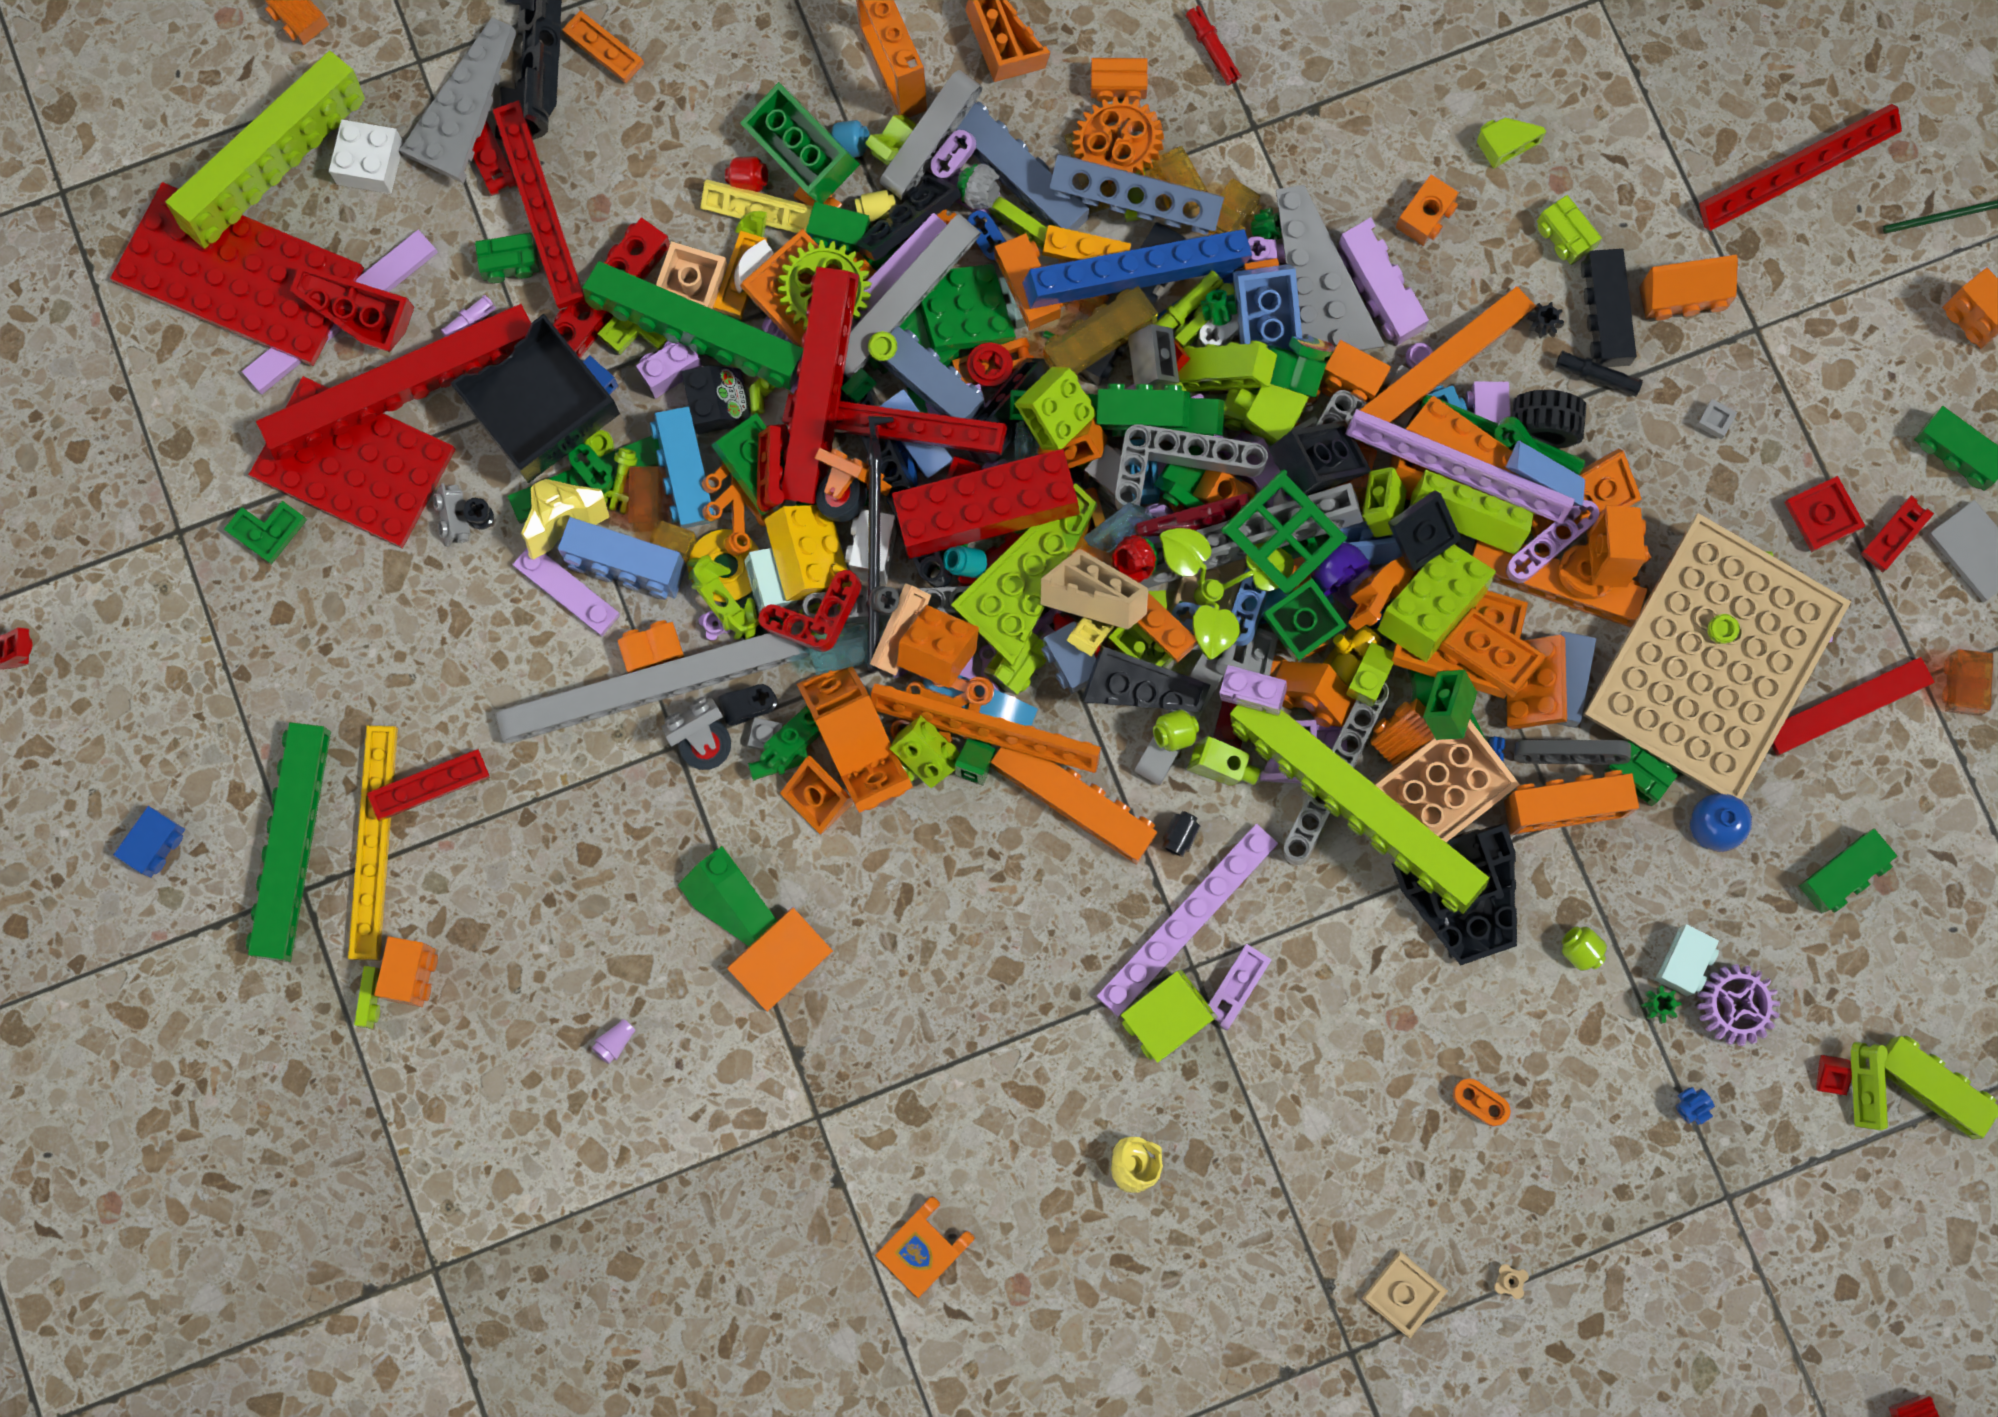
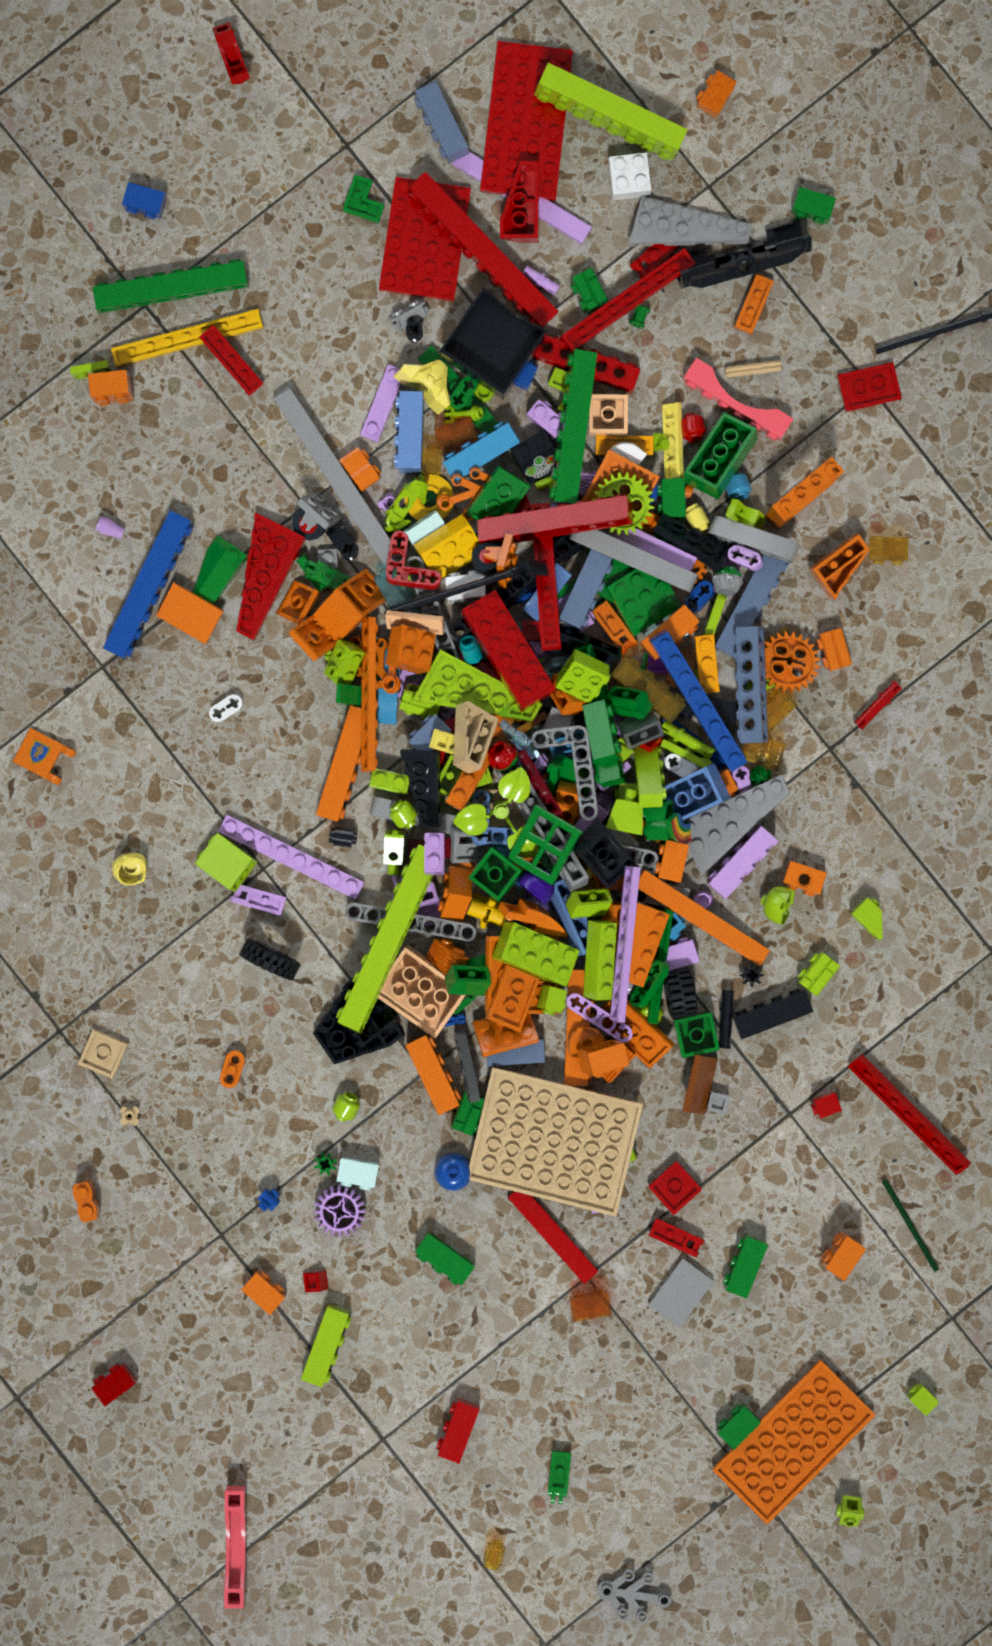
camera: 70 degrees right, 10 degrees up
(195, 386) = (441, 122): none -> sand blue brick
(567, 201) = (639, 317): none -> green bush
(684, 140) = (703, 378): none -> coral arch
(692, 74) = (754, 368): none -> tan axle
(718, 1009) = (148, 584): none -> blue brick
(744, 820) = (268, 564): none -> red wing
(769, 469) = (494, 507): red plate -> none
(858, 385) = (566, 546): dark green tile -> none
(882, 346) = (593, 553): lime tile -> none
(888, 592) = (424, 610): dark grey bush -> none
(930, 951) = (223, 704): none -> white beam
(984, 353) = (616, 619): red gear -> none
(1067, 318) = (656, 667): none -> dark purple tile
(1110, 360) = (629, 702): none -> green brick
(1121, 739) = (390, 781): none -> lime brick
(1218, 307) = (689, 760): green gear -> none
(1335, 990) = (269, 959): none -> black tyre
(1371, 674) = (476, 926): lime slope -> none
(1424, 530) = (575, 933): black plate -> none
(1455, 254) = (777, 904): none -> lime cylinder
(1508, 601) = (552, 1000): none -> lime brick
(1546, 472) = (637, 1001): medium blue slope -> none
(1613, 417) = (696, 1034): none -> green brick
(1621, 1388) = (88, 1206): none -> orange brick
(1686, 432) = (700, 1084): none -> dark orange tile
(1689, 287) = (799, 1062): orange slope -> none
(1723, 629) = (572, 1139): lime tile -> none
(1758, 273) = (825, 1105): none -> red brick
(1833, 1155) = (264, 1291): none -> orange brick
(1869, 1086) = (312, 1302): lime plate -> none

